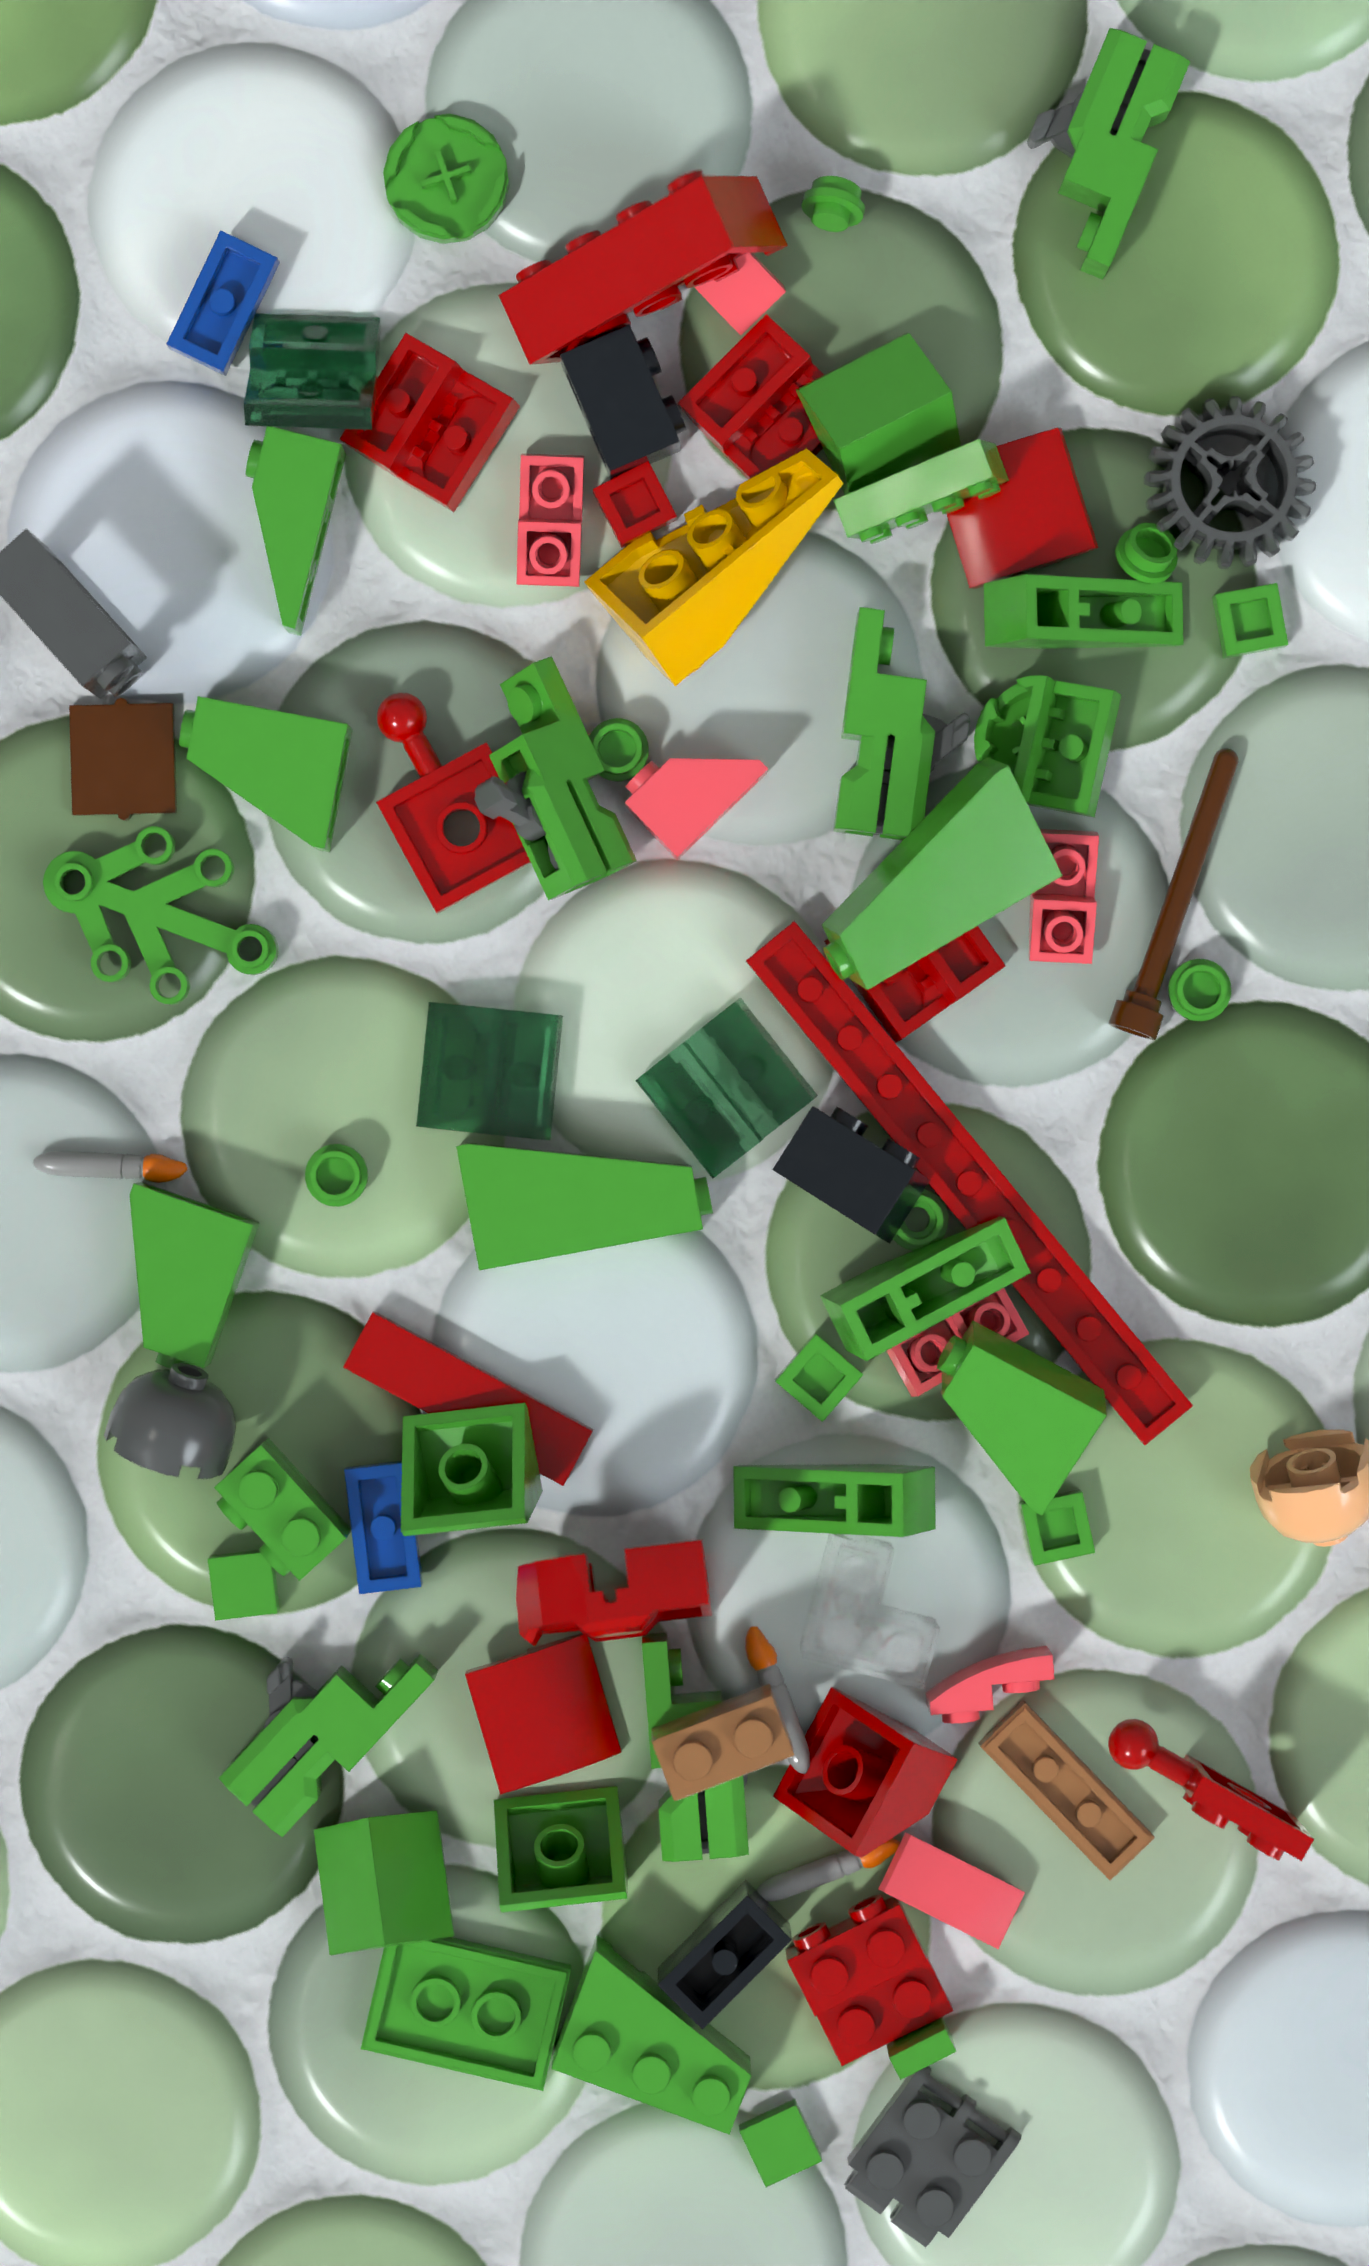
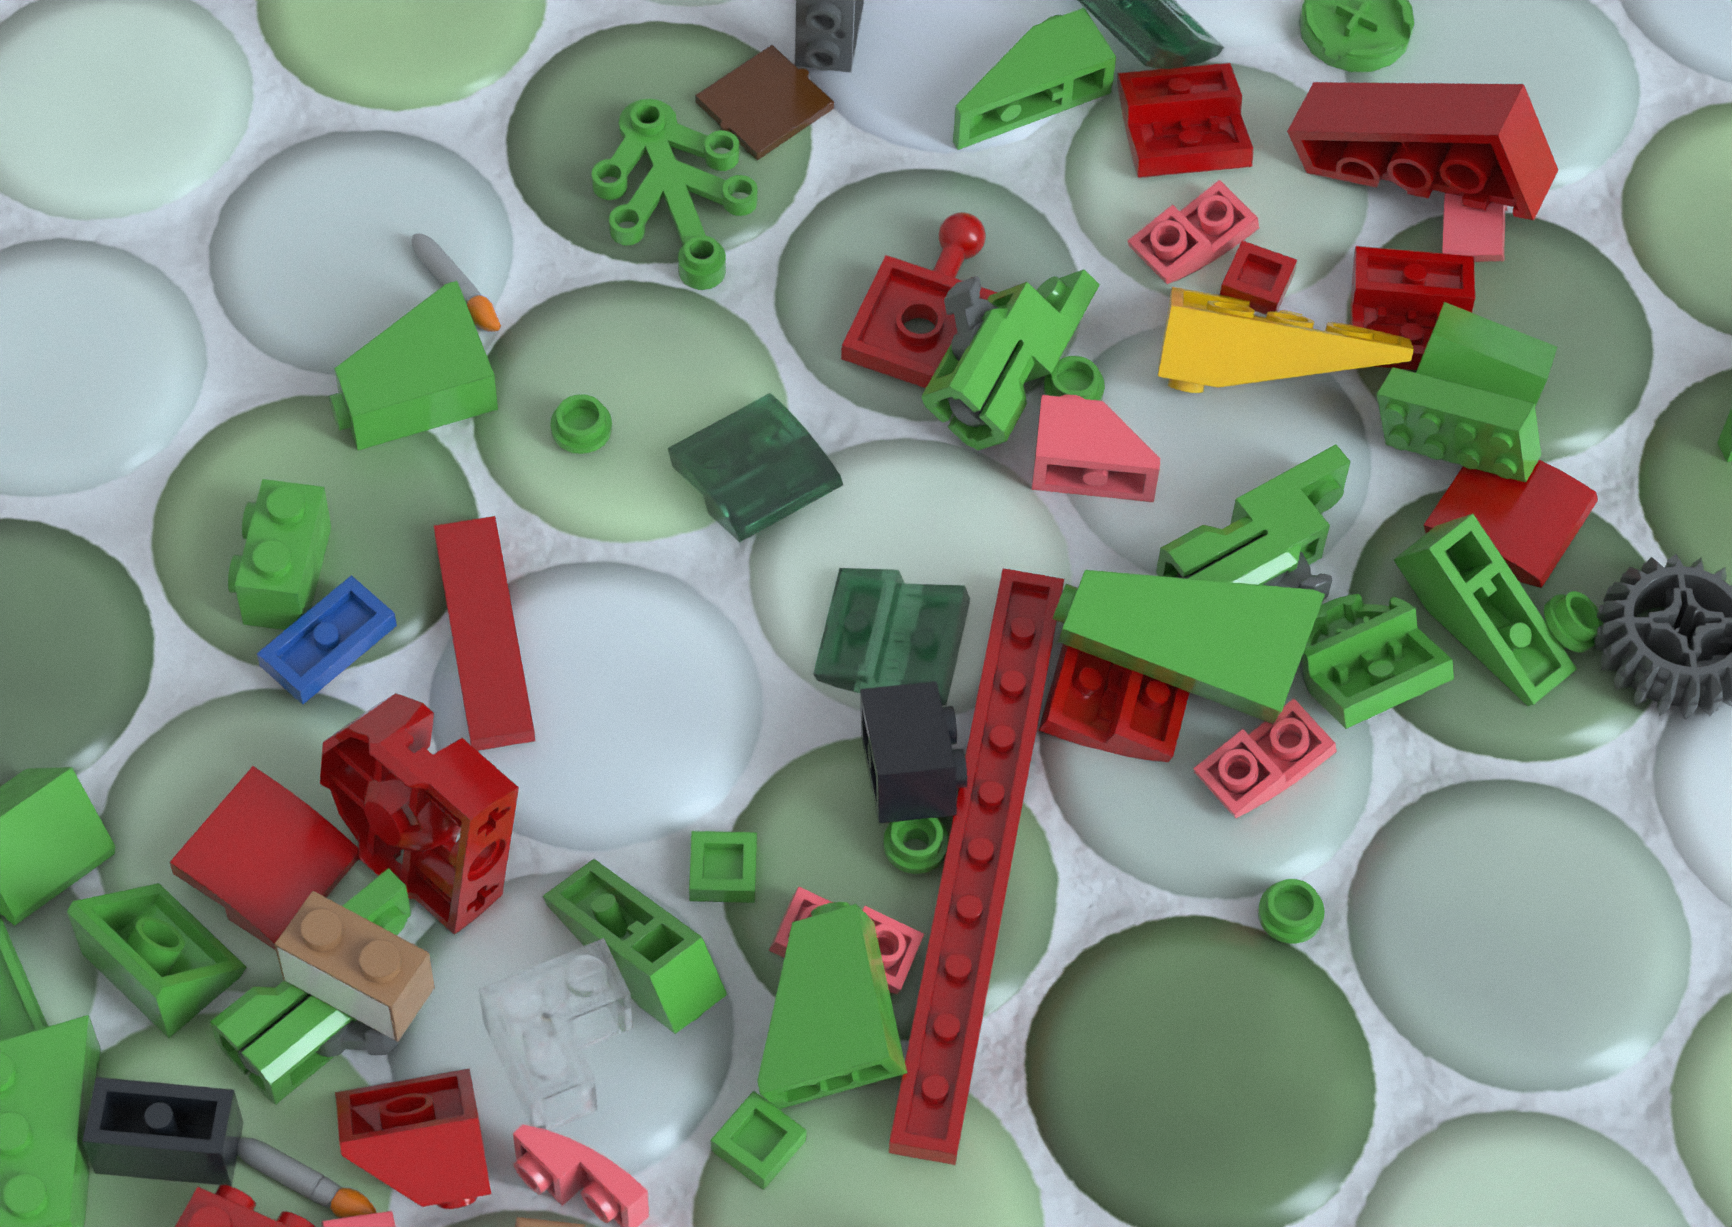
camera: 50 degrees right, 30 degrees down
(173, 1422) = (295, 421): dark grey cylinder -> none
(242, 1585) = (194, 583): bright green tile -> none
(273, 760) = (855, 180): bright green slope -> none
(311, 1730) = (117, 704): bright green plate -> none
(468, 1470) = (428, 652): bright green slope -> none
(562, 1203) = (704, 586): bright green slope -> none
(622, 401) = (1321, 211): black brick -> none
(764, 1660) = (448, 997): light grey piece -> none
(833, 203) = (1591, 246): bright green plate -> none
(923, 1287) = (867, 868): bright green slope -> none
(1140, 1008) = (1231, 877): reddish brown piece -> none
(1250, 620) = (1599, 736): bright green tile -> none

